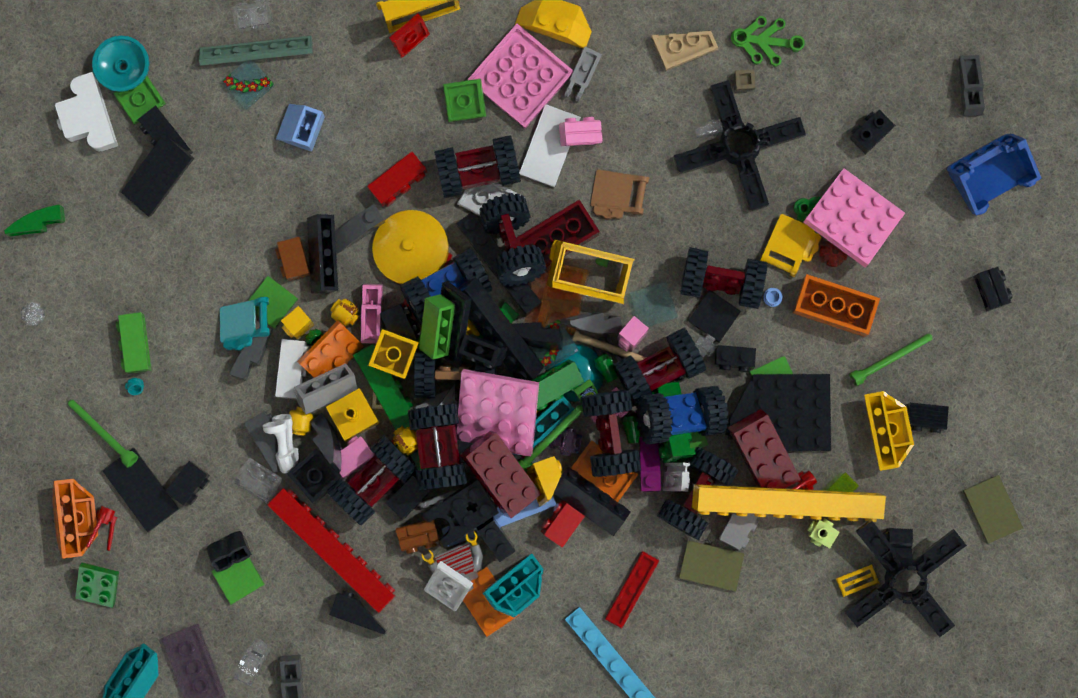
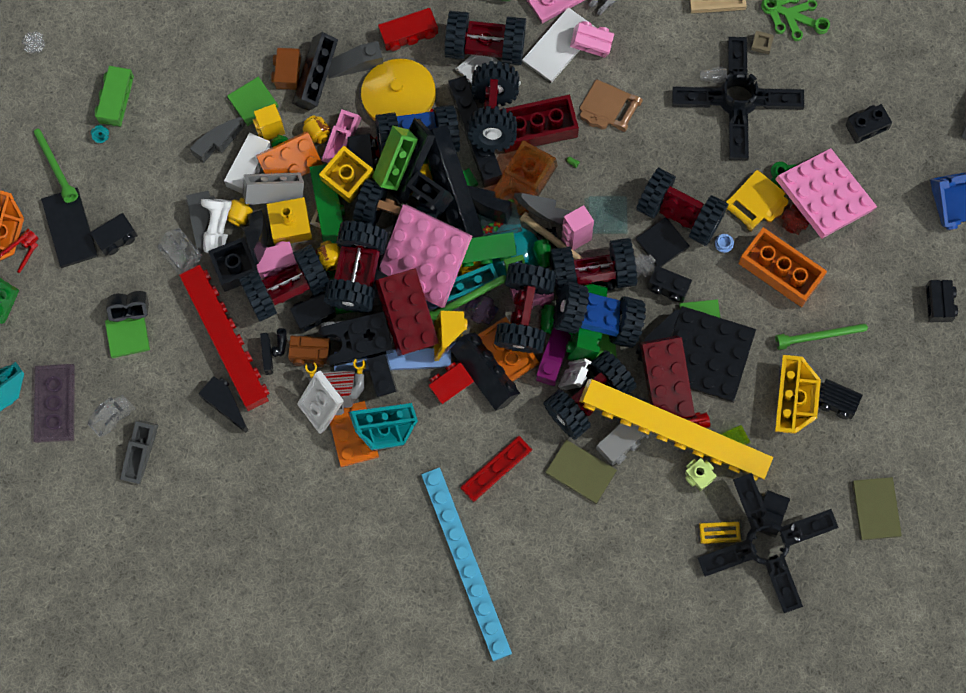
camera: 20 degrees right, 10 degrees down
(239, 323) = (216, 108): teal piece -> none
(379, 554) = (266, 353): none -> black tile
(388, 536) = (279, 350): none -> black arm
(557, 256) = (529, 136): yellow piece -> none

